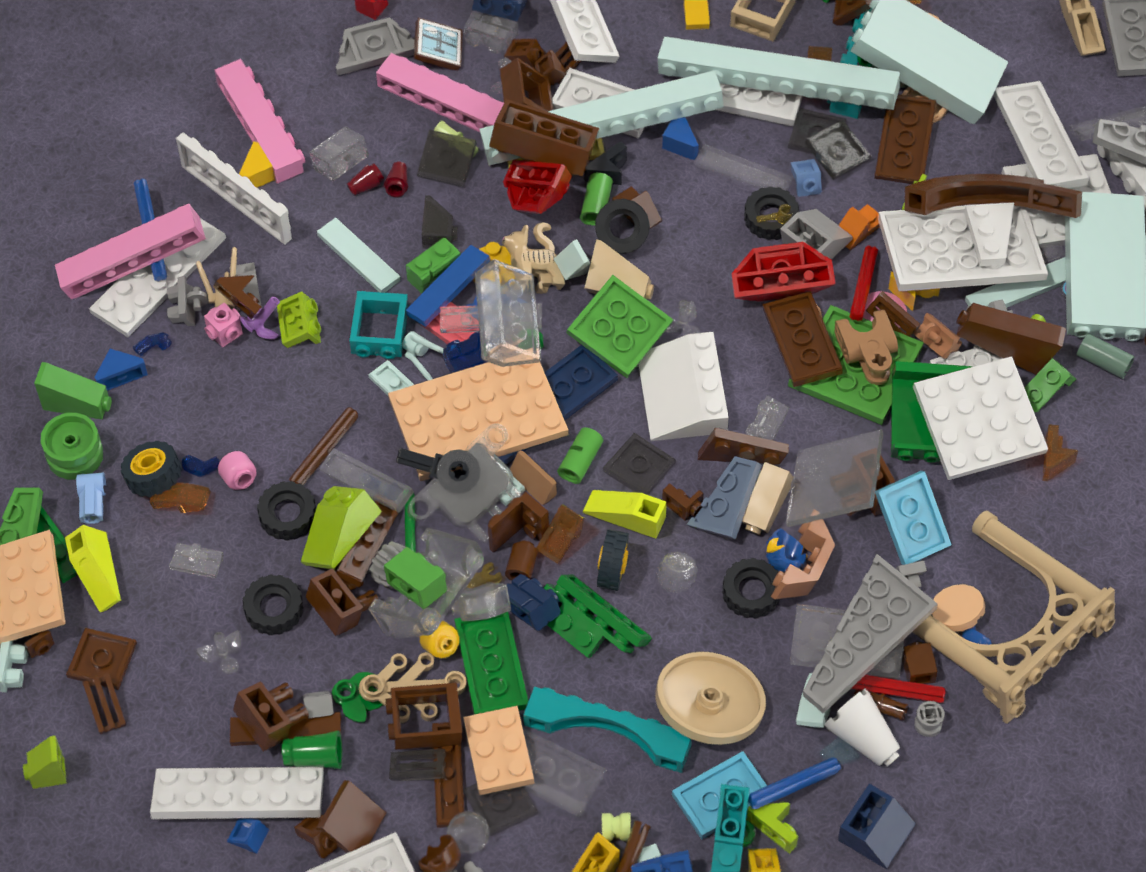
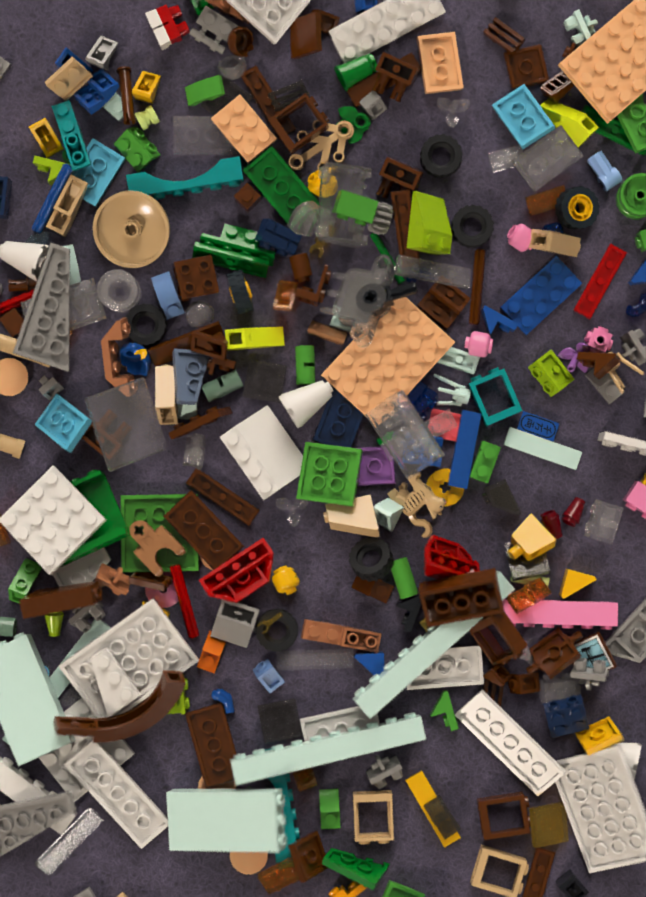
camera: 150 degrees right, 30 degrees up
(95, 607) = (559, 91): none -> reddish brown slope
(145, 594) = (523, 116): none -> medium azure plate
(148, 532) = (547, 158): none -> clear slope
(177, 389) = (600, 281): none -> red tile
(203, 710) = (440, 62): none -> light nougat plate
(205, 437) = (555, 242): none -> tan slope
(255, 405) = (541, 295): none -> blue plate
(326, 400) = (492, 318): none -> blue slope
(348, 277) = (537, 426): none -> blue tile
(361, 383) = (479, 344): none -> bright pink head
(374, 446) = (443, 304): none -> reddish brown slope
(409, 115) = (573, 582): none -> yellow slope
(431, 168) = (531, 540): none -> yellow torso
(449, 23) = (590, 676): none -> light grey hips
(468, 117) = (528, 596): none -> clear orange slope
(475, 59) = (554, 653): none -> reddish brown plate
(521, 819) = (204, 90): none -> bright green slope
(541, 667) = (247, 197): none -> reddish brown brick
(556, 319) = (375, 468): none -> medium lavender tile
(602, 411) = (306, 401): none -> white cone
(627, 65) = (444, 705): none -> bright green slope
(650, 796) = (136, 148): none -> bright green bracket
(661, 605) = (195, 277): none -> reddish brown bracket
(679, 513) = (209, 345): none -> reddish brown slope
(694, 478) = (222, 386): none -> sand green pin
(696, 175) = (341, 635): none -> nougat slope
(705, 607) = (167, 295): none -> medium blue brick
(711, 544) = (163, 352): none -> reddish brown tile
(731, 252) = (285, 580): none -> yellow head
(733, 37) = (383, 769): none -> light grey hips
(758, 366) = (222, 496): none -> reddish brown tile
(764, 631) = (115, 280): none -> clear wheel
(780, 763) = (67, 206): none -> tan slope
(807, 33) = (329, 808): none -> bright green slope
(837, 149) = (256, 709): clear smoke tile -> none
(869, 178) = (225, 698): none -> blue arm

